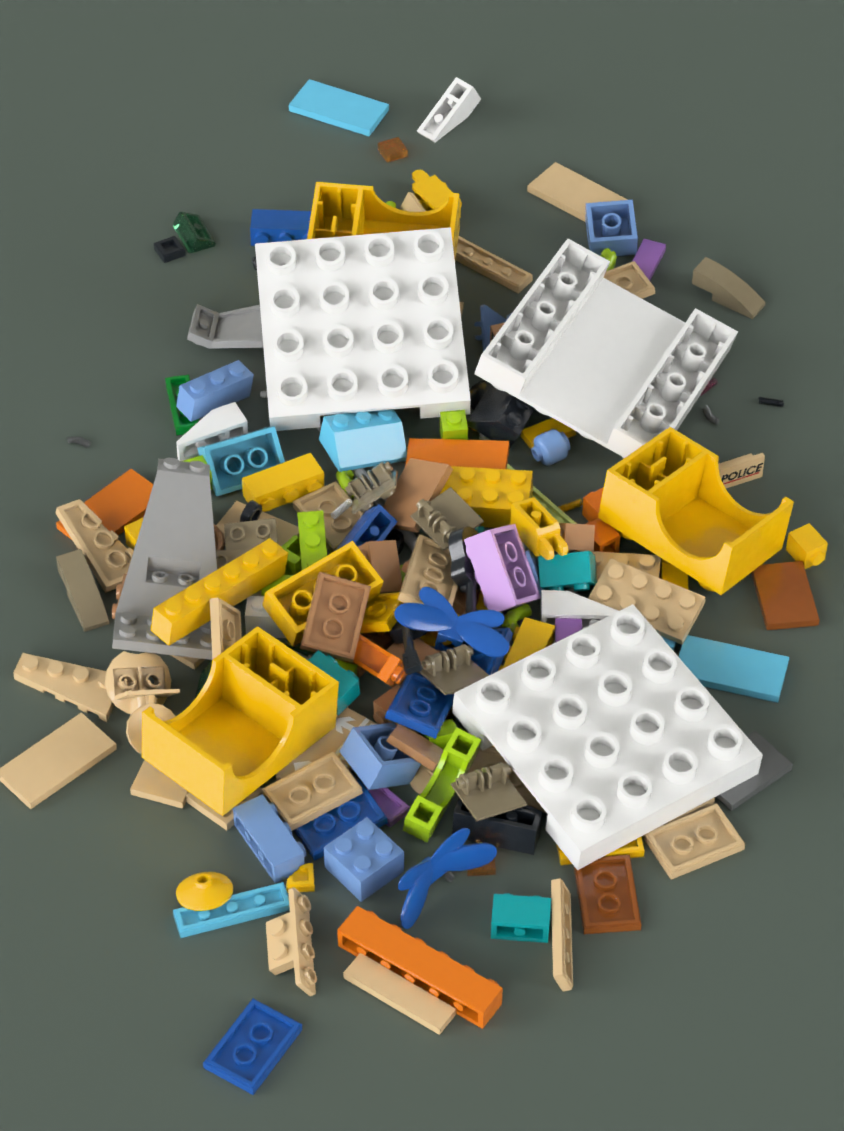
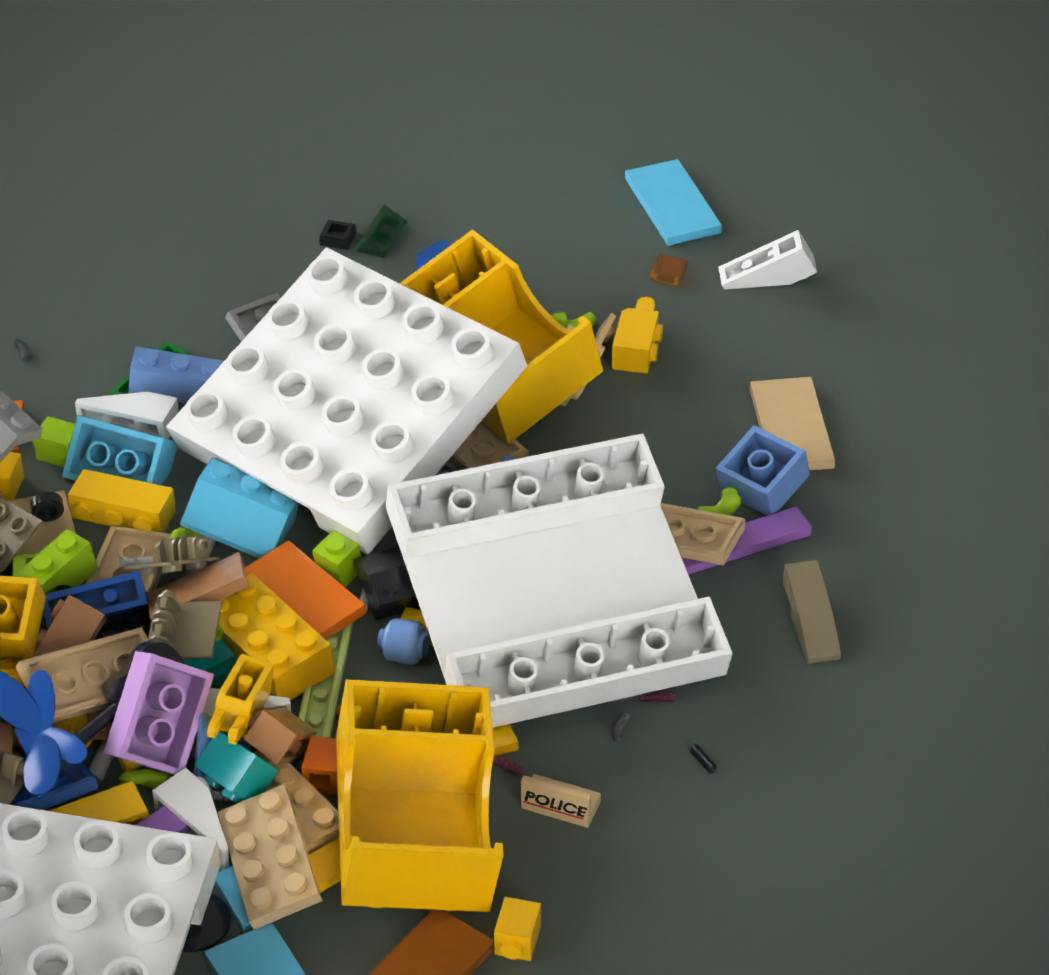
camera: 45 degrees right, 5 degrees down
(492, 266) = (603, 413): tan tile -> none

